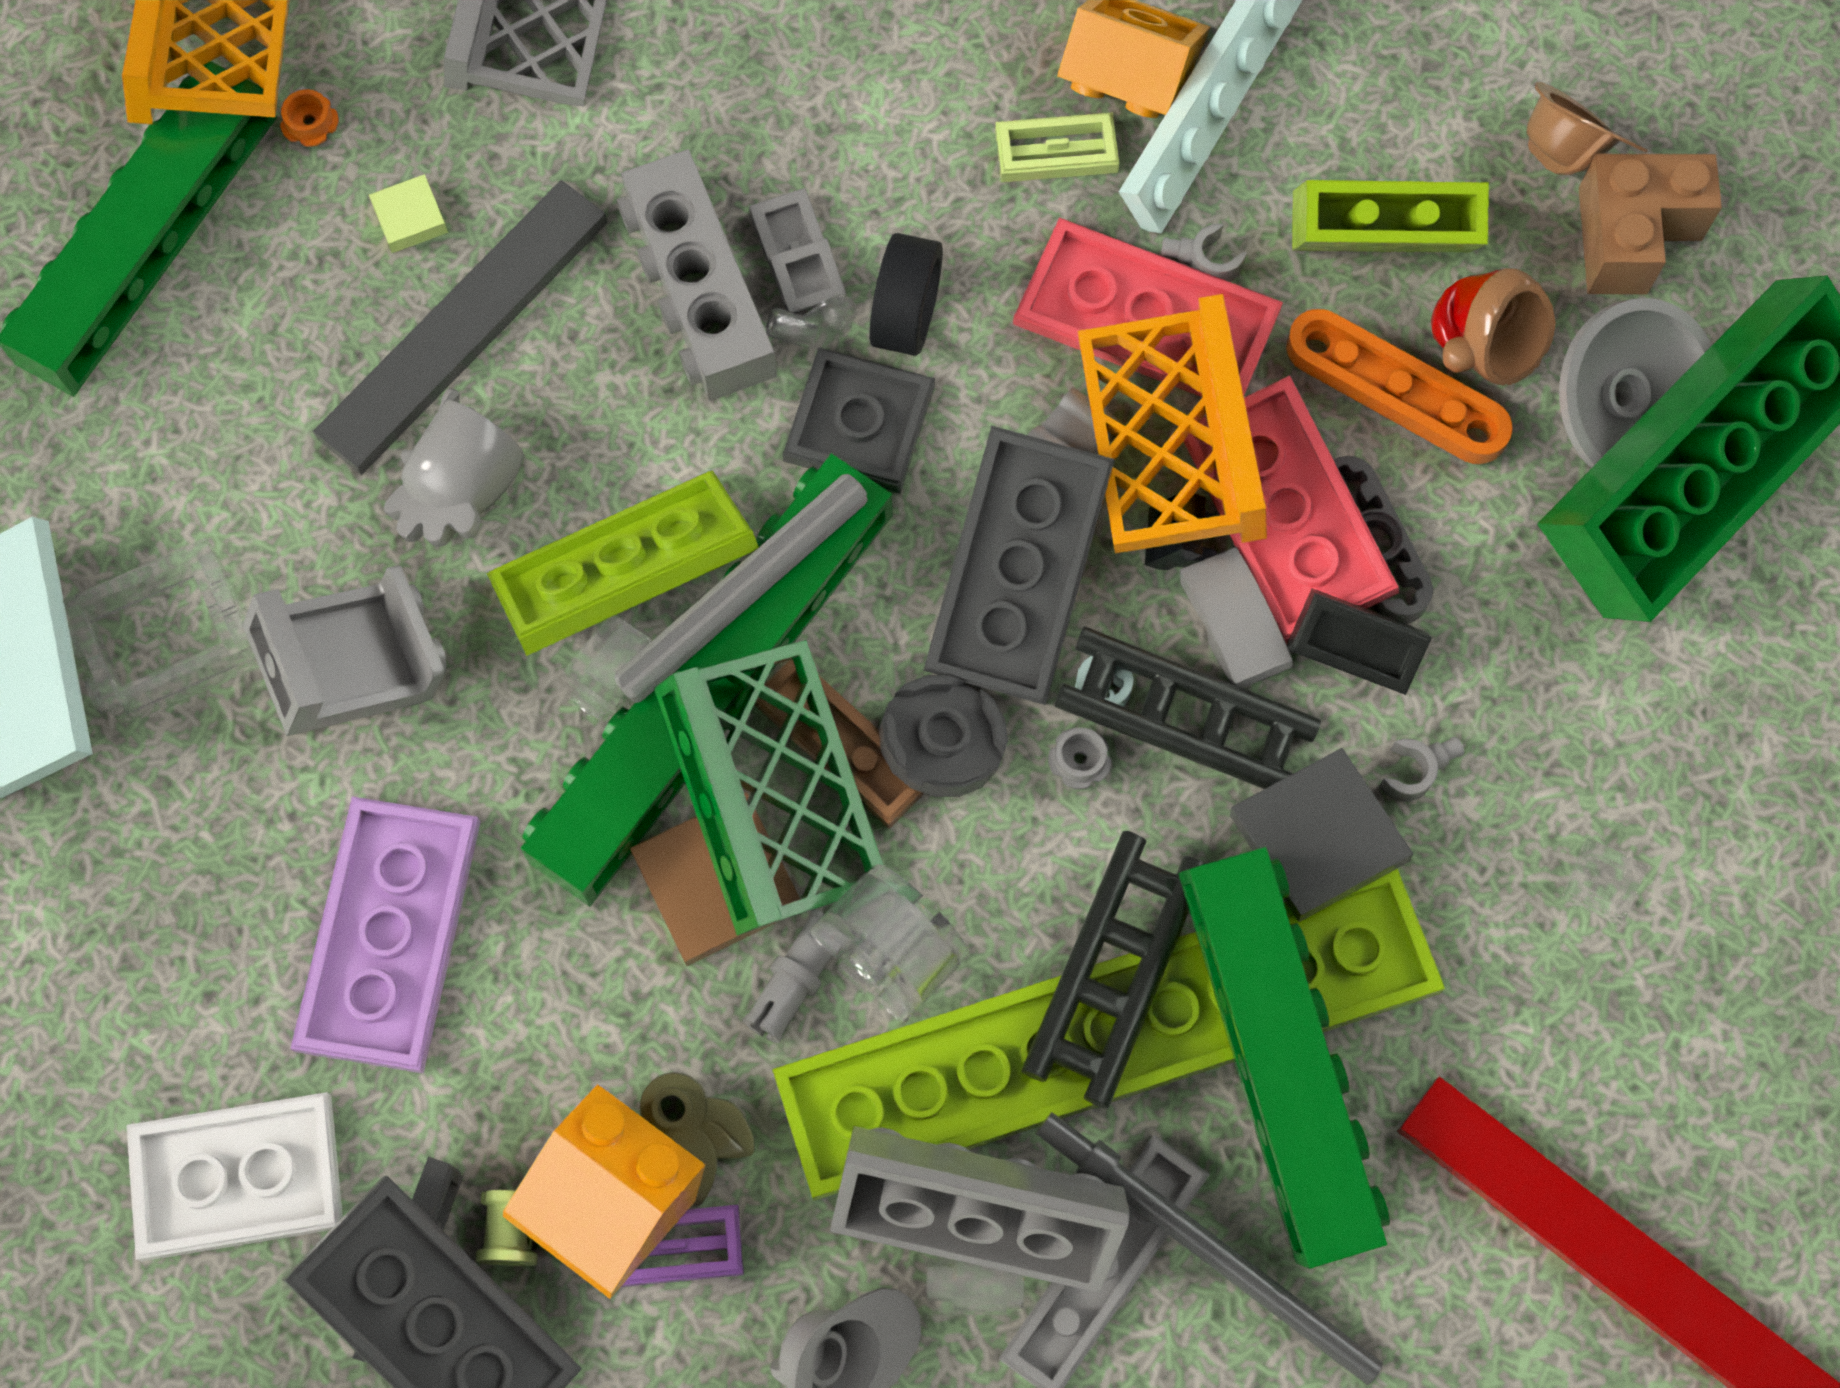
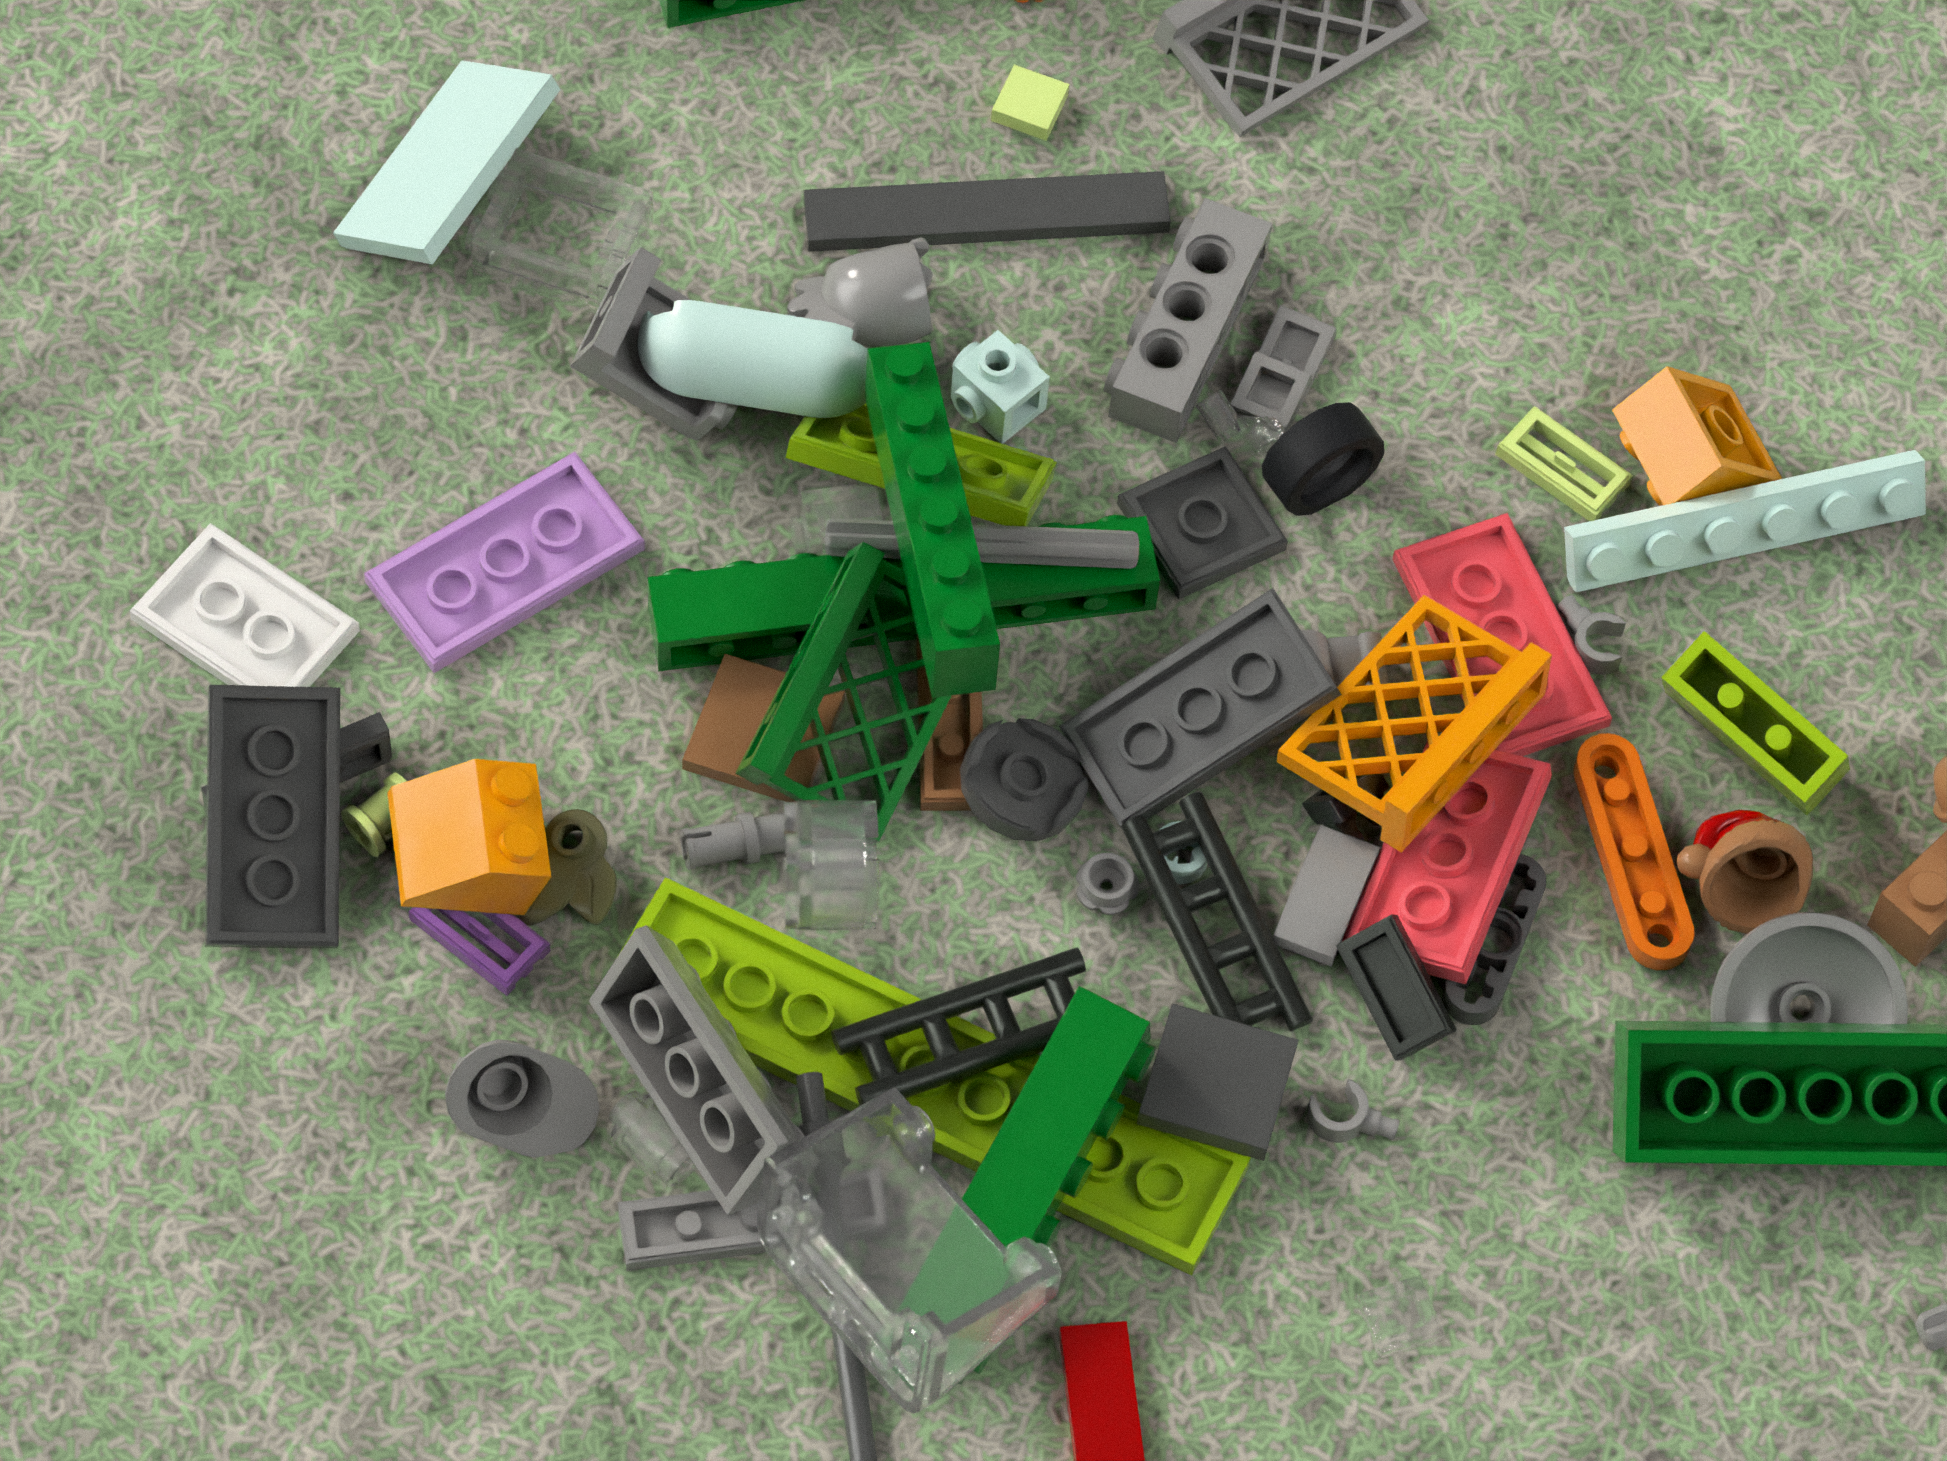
camera: 40 degrees right, 10 degrees down
(428, 600) = (754, 359): none -> light aqua brick
(616, 451) = (998, 385): none -> light aqua brick
(704, 607) = (931, 520): none -> green brick
(1278, 1204) = (897, 1251): none -> clear windscreen

